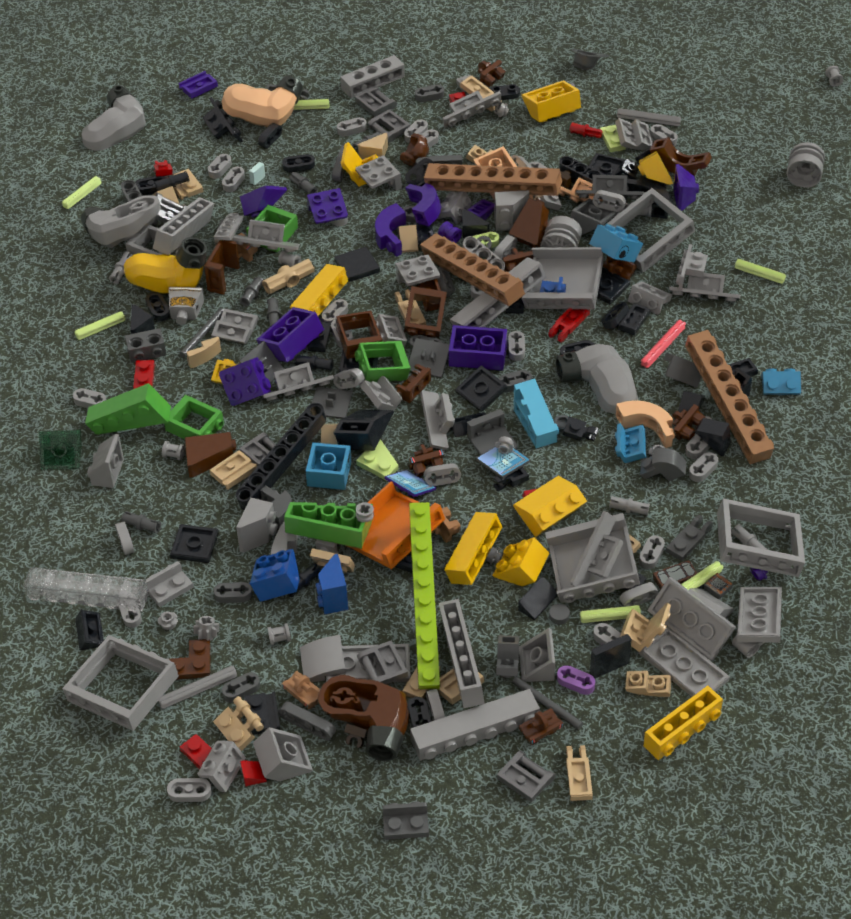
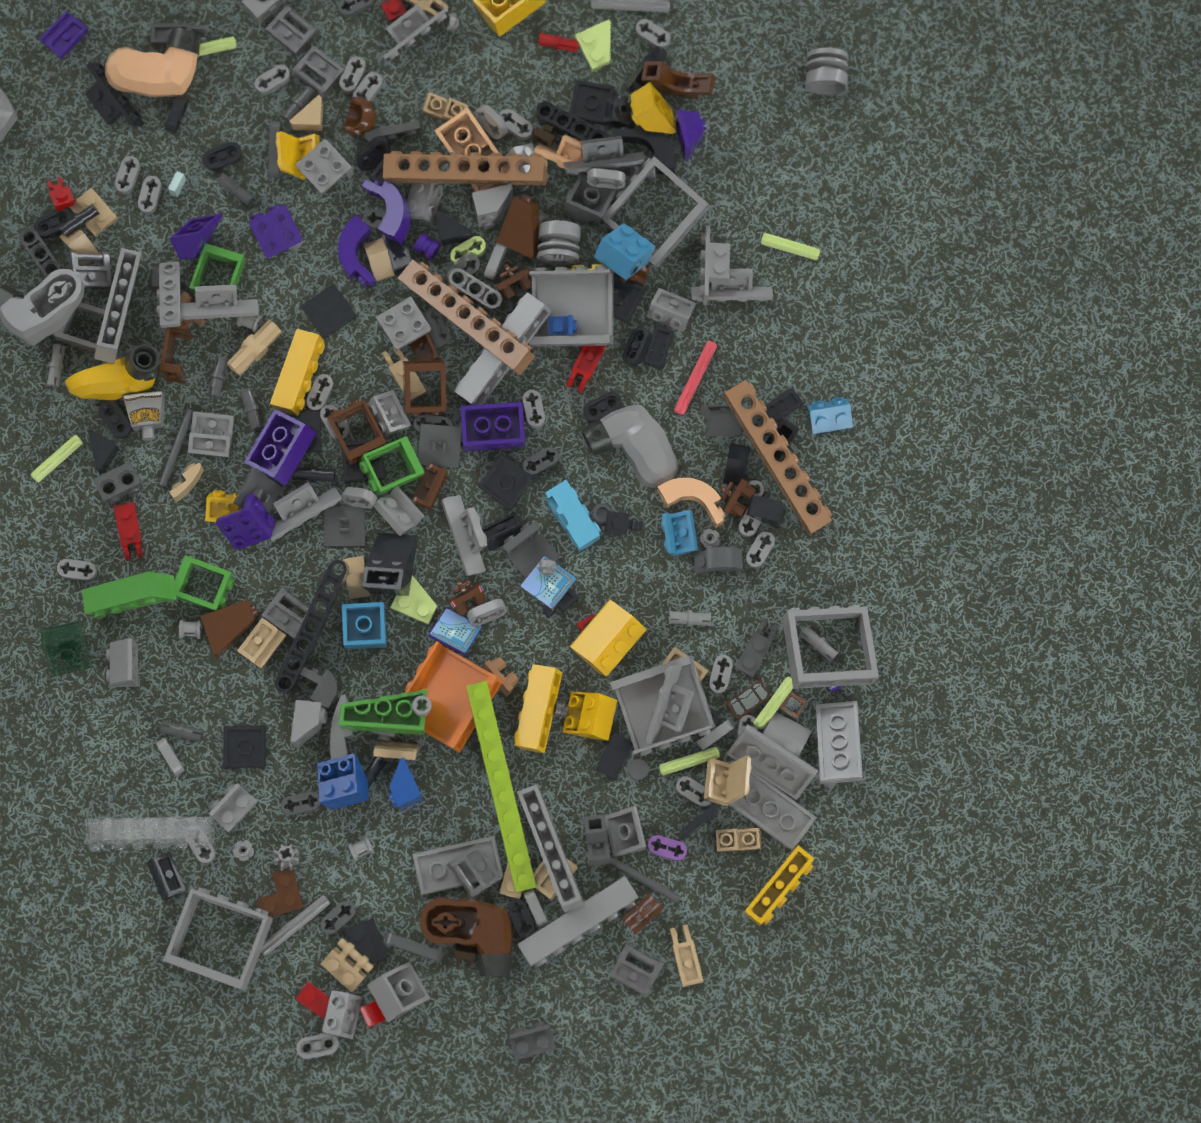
camera: 15 degrees left, 30 degrees up
(302, 689) = (401, 914): medium nougat hips -> none
(322, 658) = (411, 870): light grey slope -> none
(483, 209) = (456, 216): dark purple slope -> none
(634, 134) = (618, 42): light grey slope -> none

